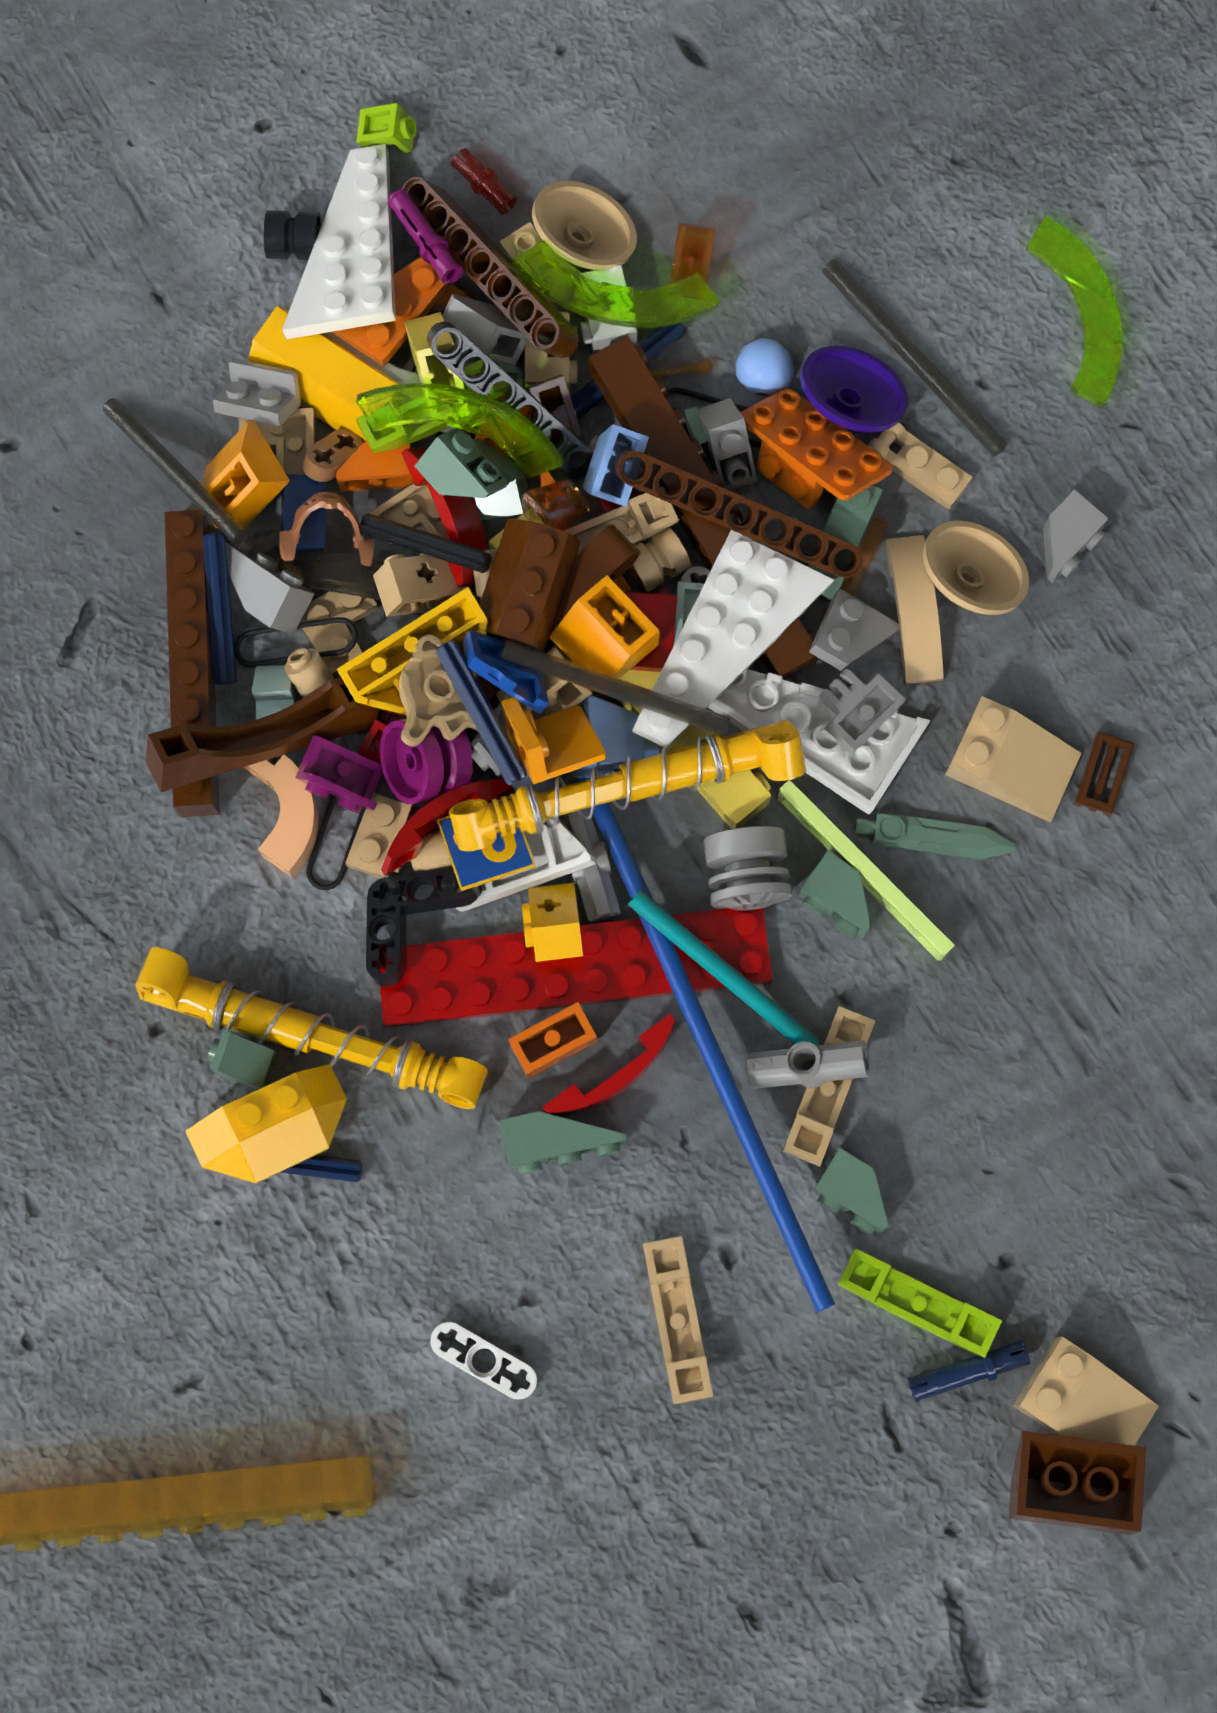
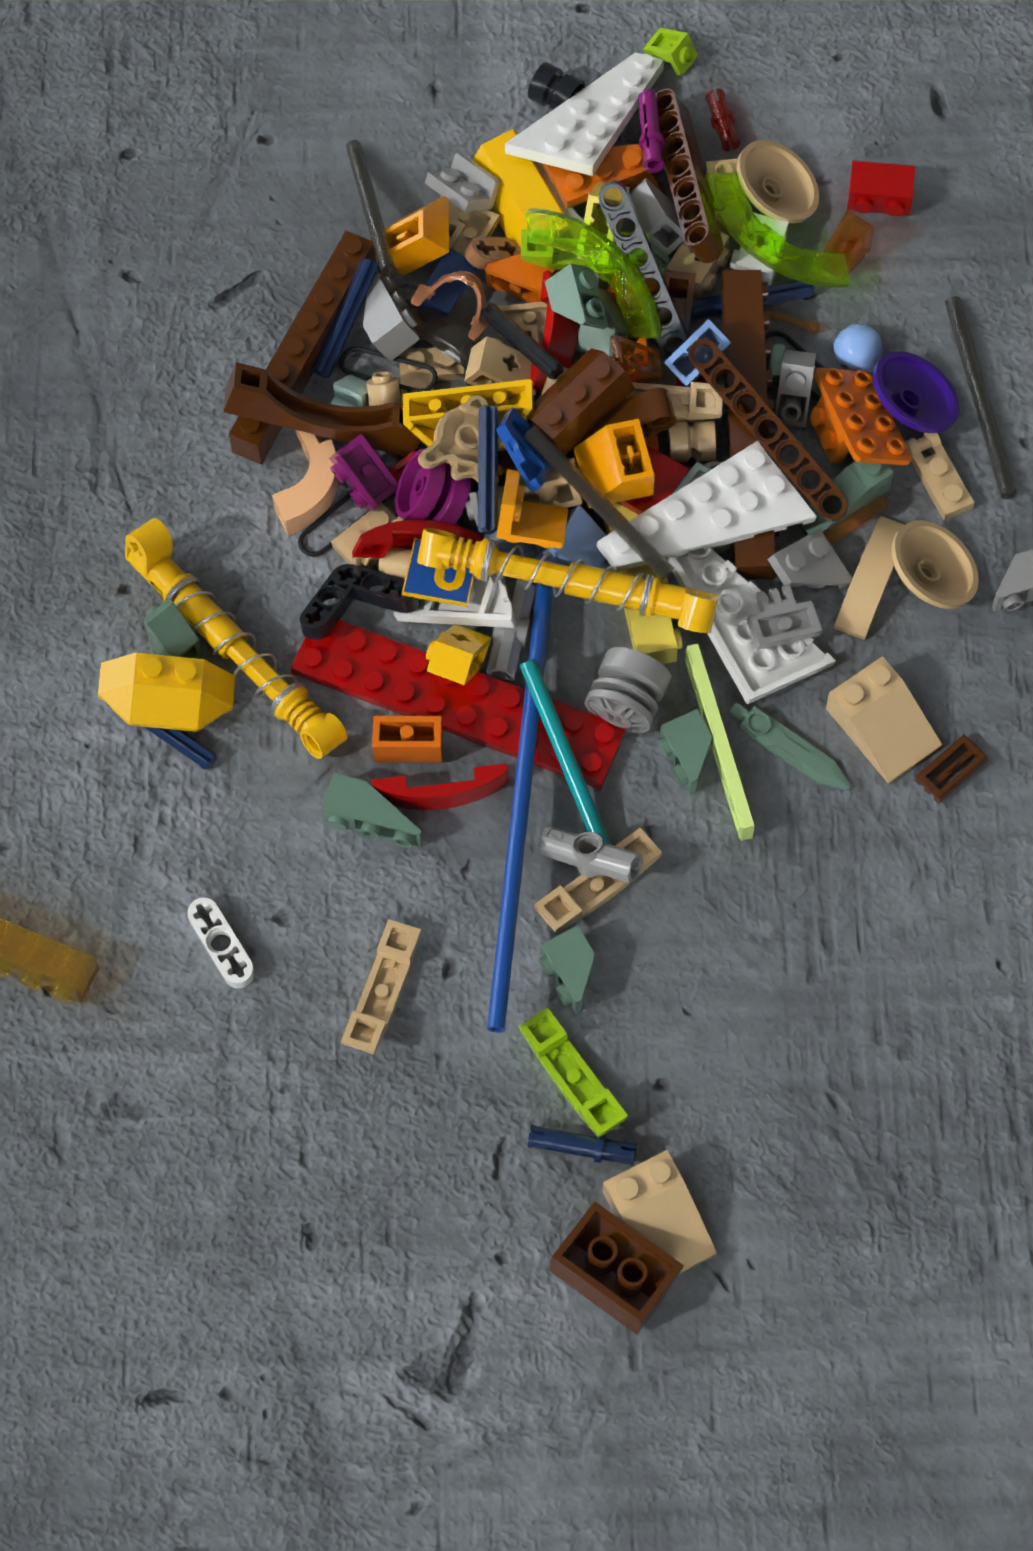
camera: 30 degrees right, 10 degrees down
(690, 178) = (881, 188): none -> red brick

